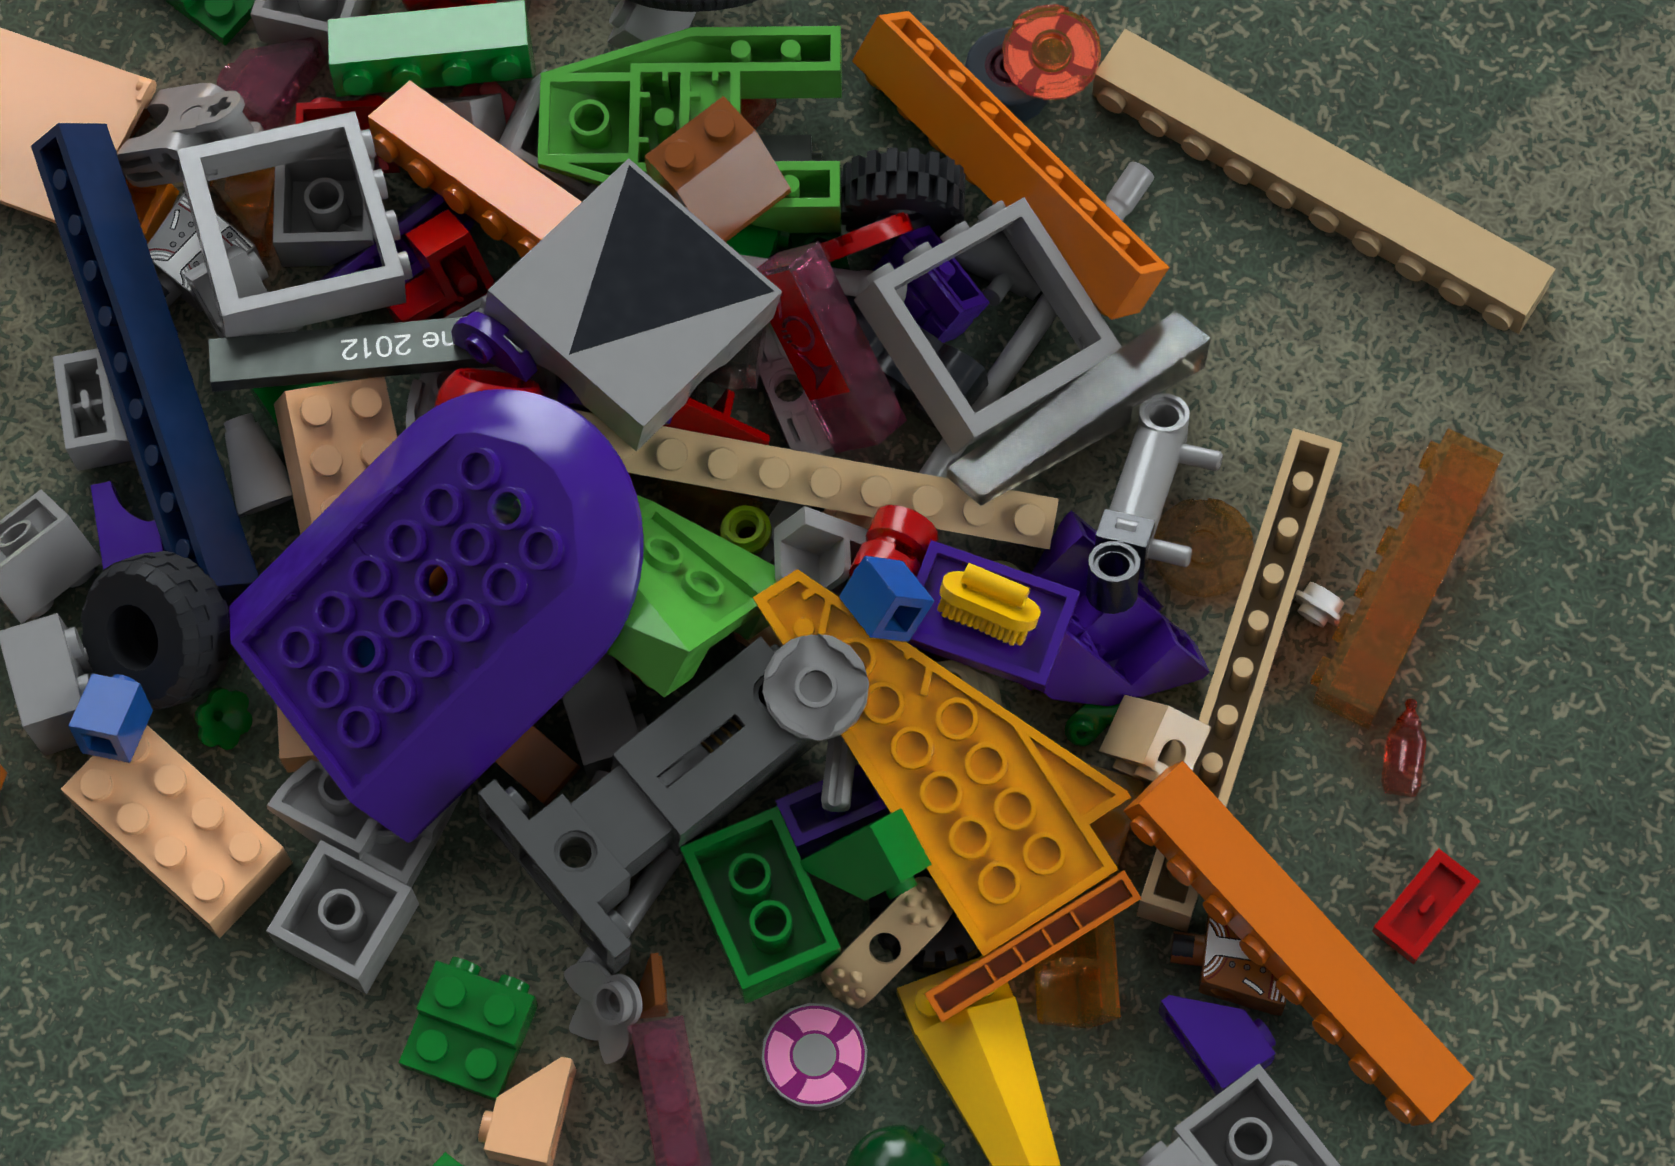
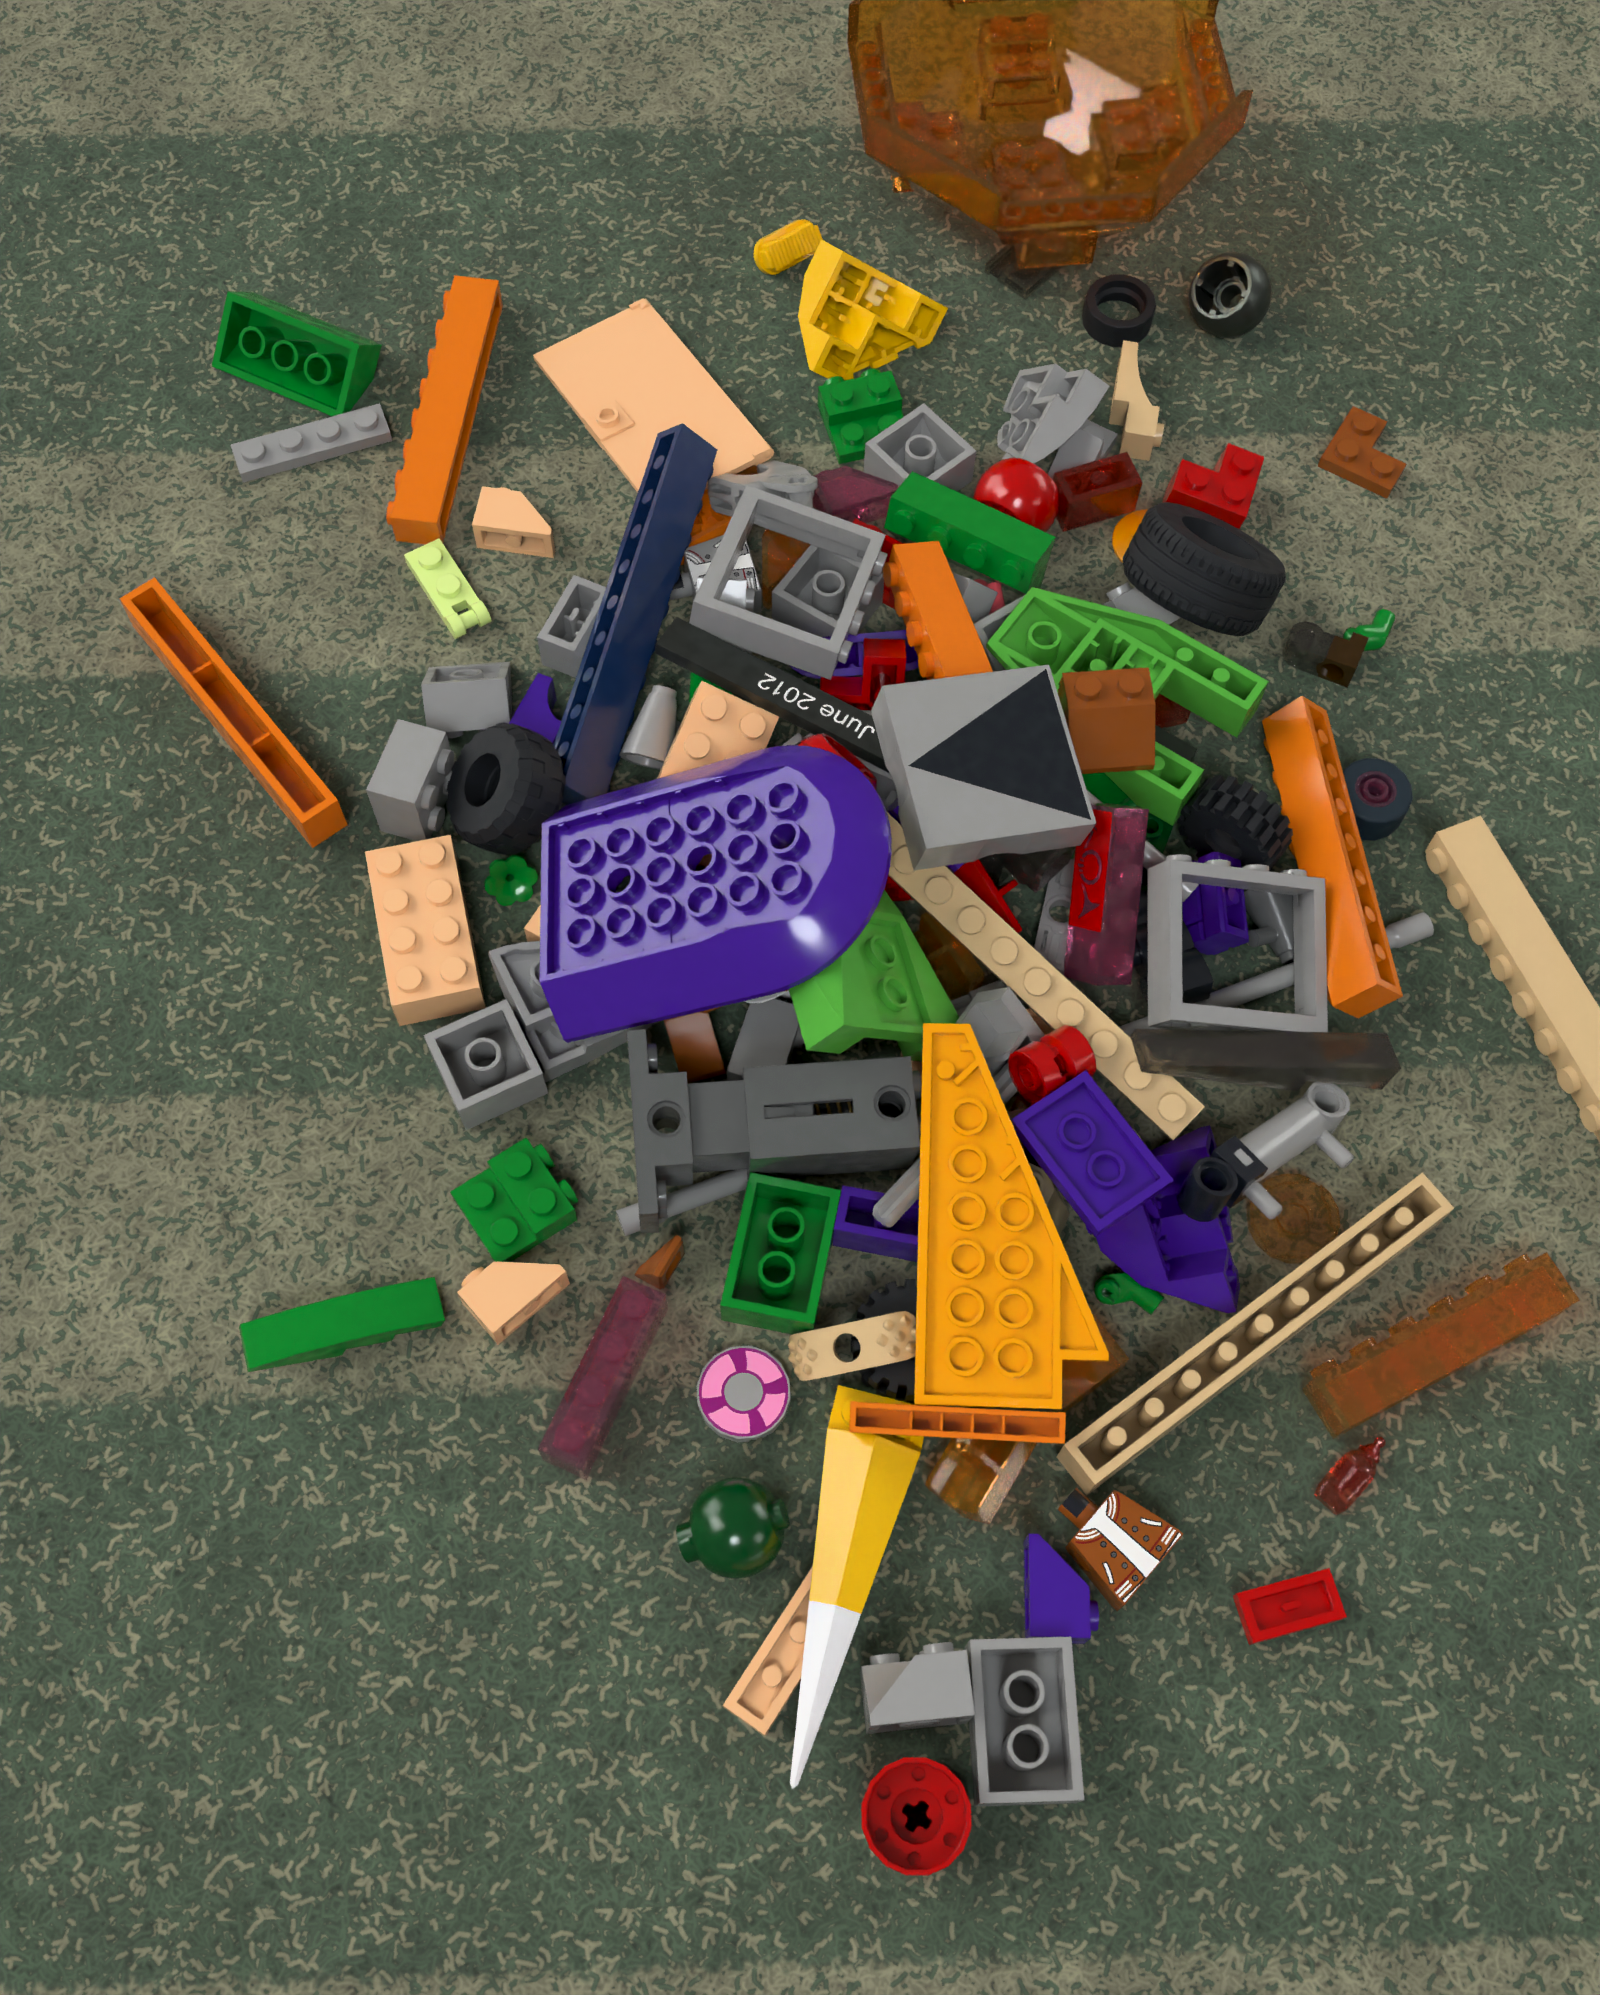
camera: 30 degrees right, 5 degrees down
(111, 717) = (428, 822): blue brick -> none
(486, 343) = (859, 726): dark purple plate -> none
(605, 1009) = (618, 1253): light grey plate -> none
(743, 517) = (960, 973): lime plate -> none
(815, 687) = (924, 1118): light grey tile -> none
(867, 236) = (1187, 835): red tile -> none
(872, 859) = (881, 1274): green slope -> none
(886, 598) = (1020, 1087): blue brick -> none
(988, 603) = (1096, 1143): yellow piece -> none
(1051, 52) = (1413, 798): clear orange tile -> none
(1152, 737) = (1157, 1333): tan brick -> none
(1297, 945) = (1164, 1570): orange brick -> none
(1319, 605) = (1355, 1318): white plate -> none

